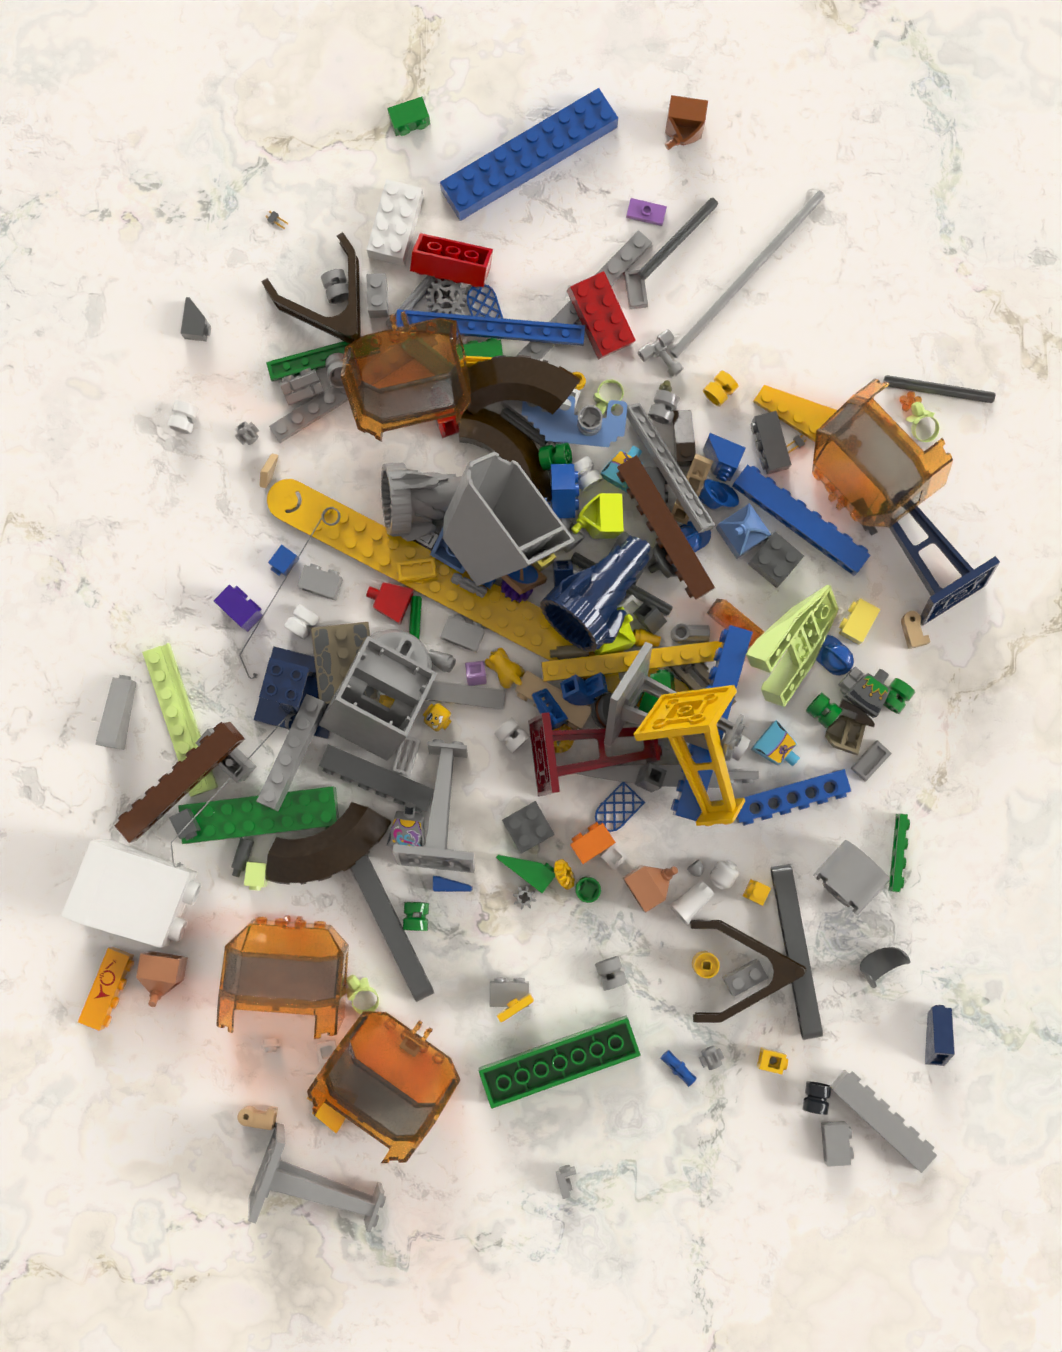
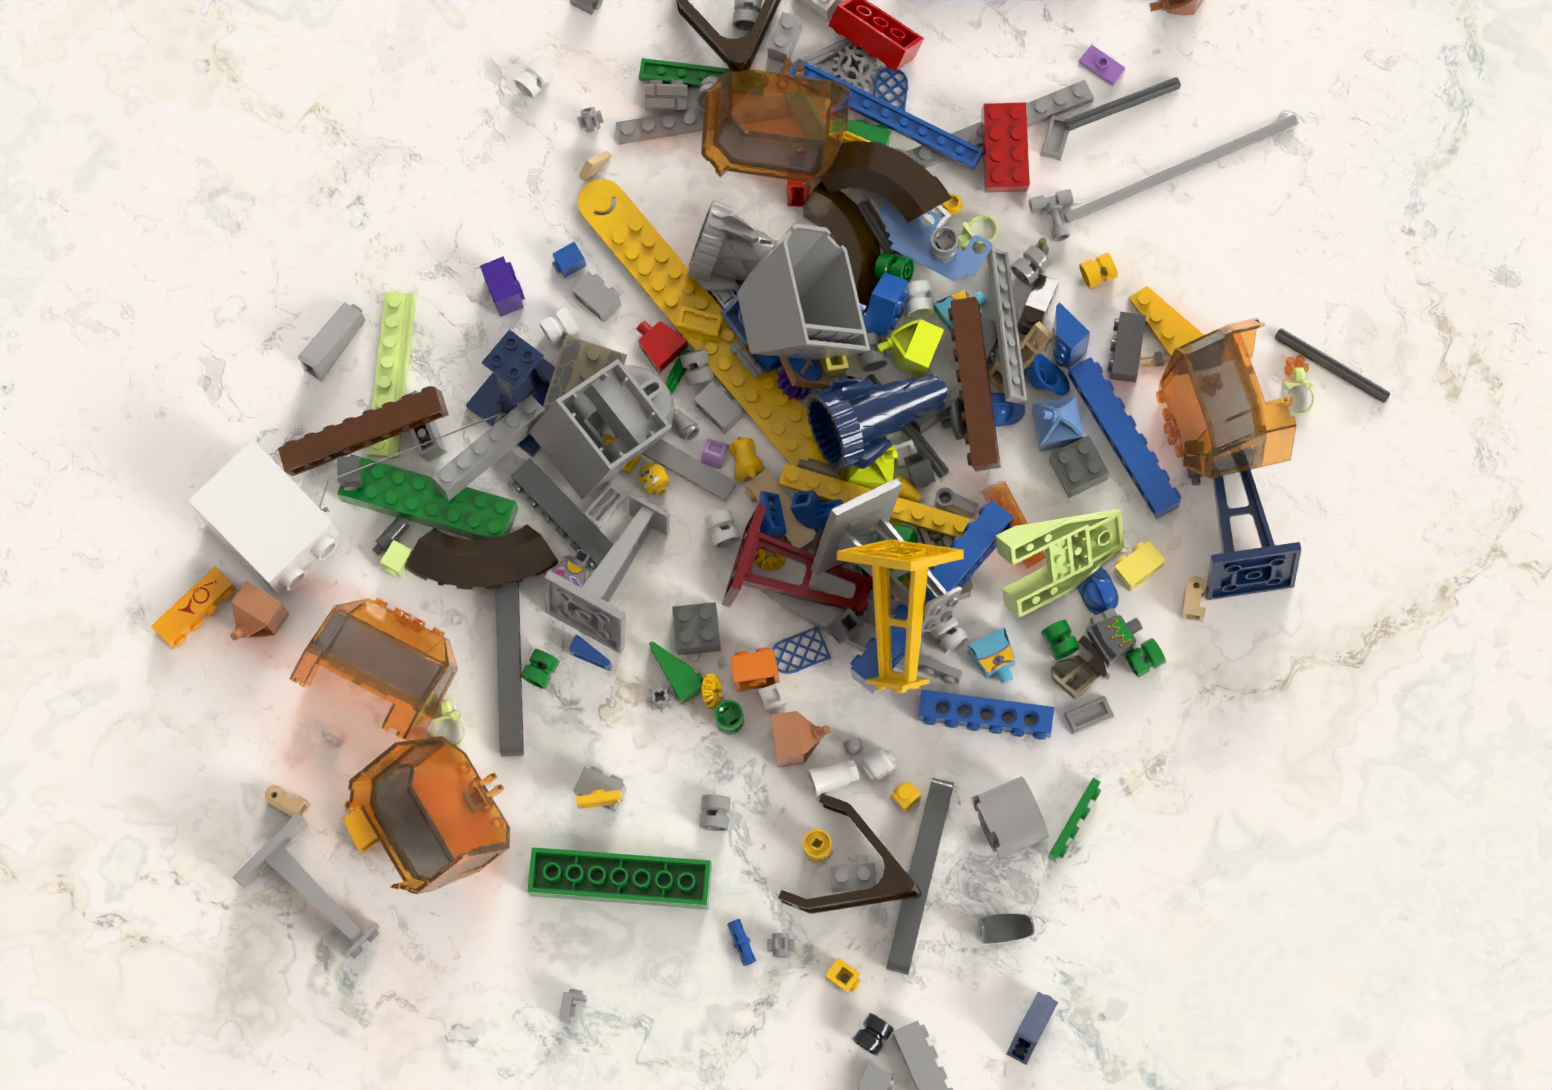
camera: 30 degrees right, 10 degrees down
(322, 518) = (632, 241): light grey piece -> none
(432, 614) = (698, 374): none -> light grey wheel

